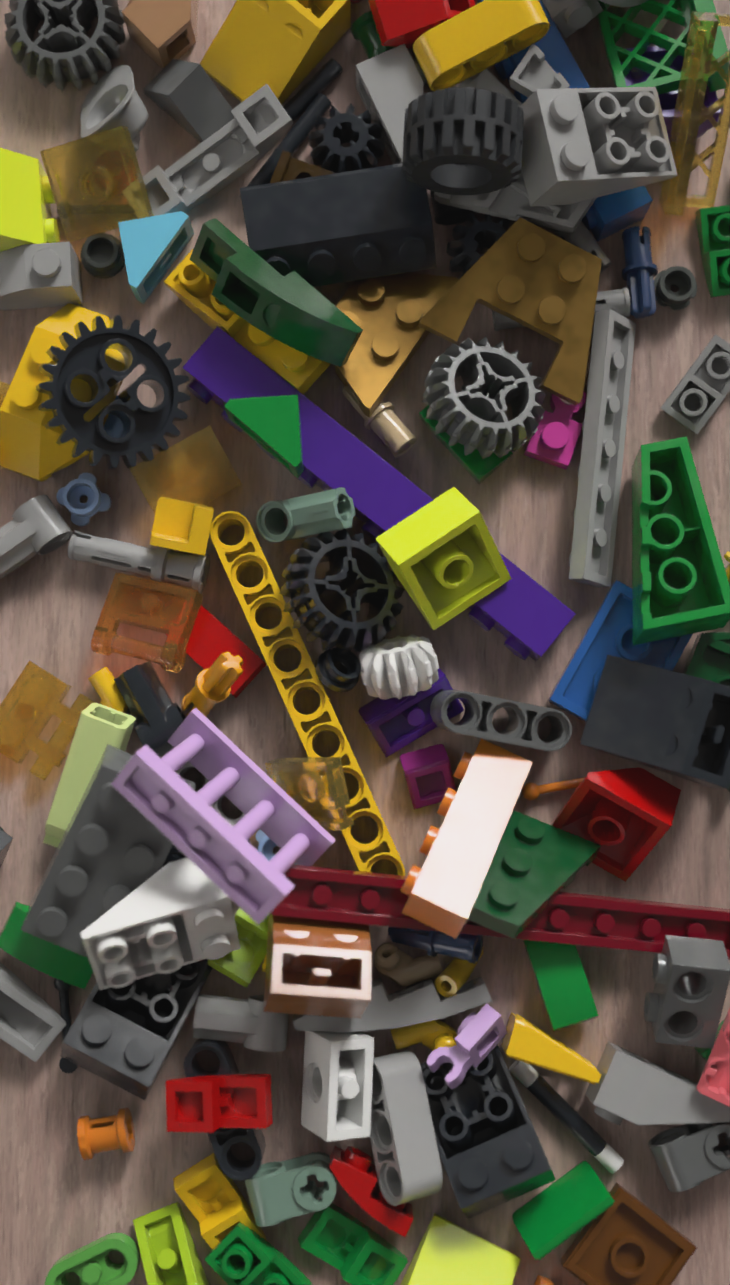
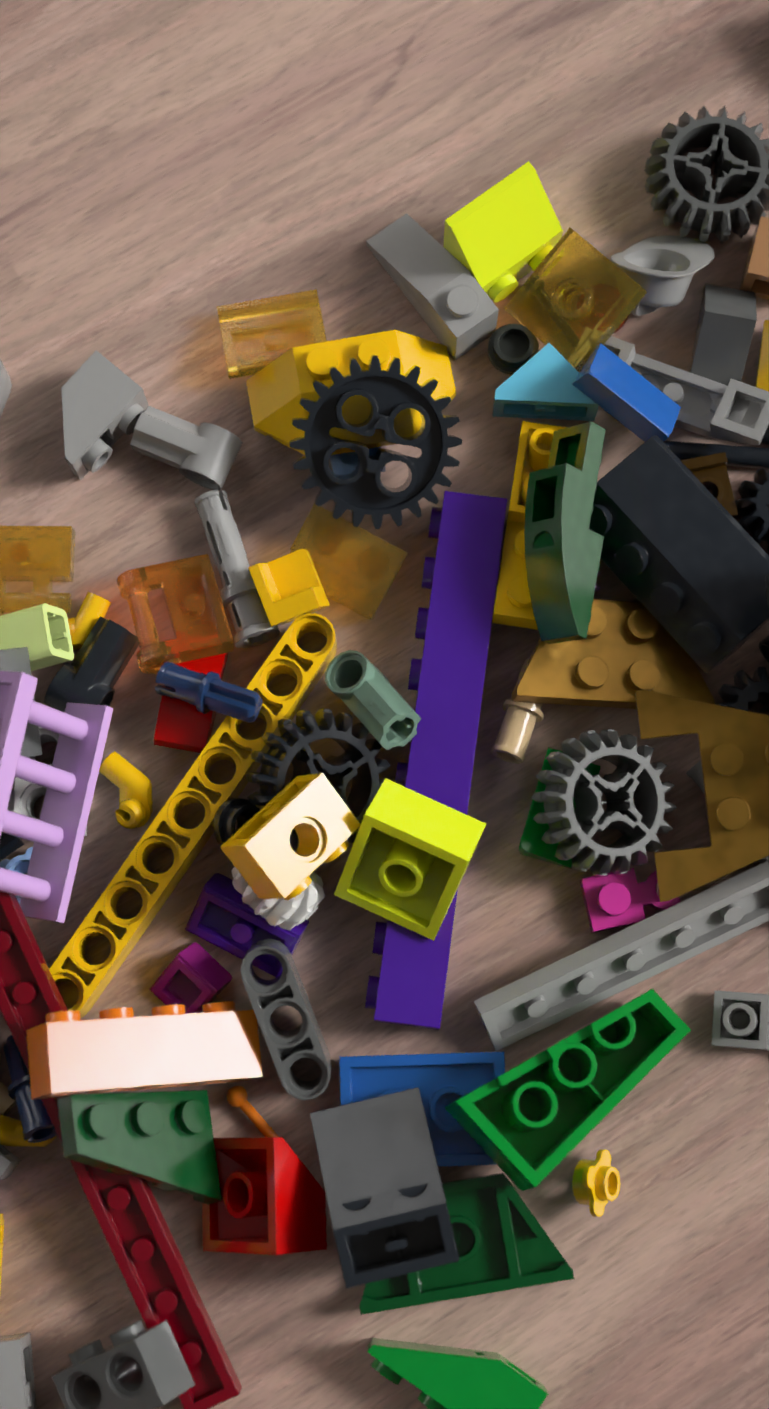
camera: 60 degrees right, 5 degrees down
(70, 498) = (261, 465): light blue plate -> none
(196, 192) = (627, 395): none -> blue slope
(214, 683) = (149, 713): light orange axle -> none
(226, 631) = (208, 692): none -> dark blue axle
(262, 734) = (134, 791): none -> yellow arm
(273, 425) = (438, 615): green slope -> none
(316, 786) = (104, 873): clear yellow plate -> none
(375, 656) = (263, 847): none -> brick
(561, 983) = (58, 1246): green slope -> none

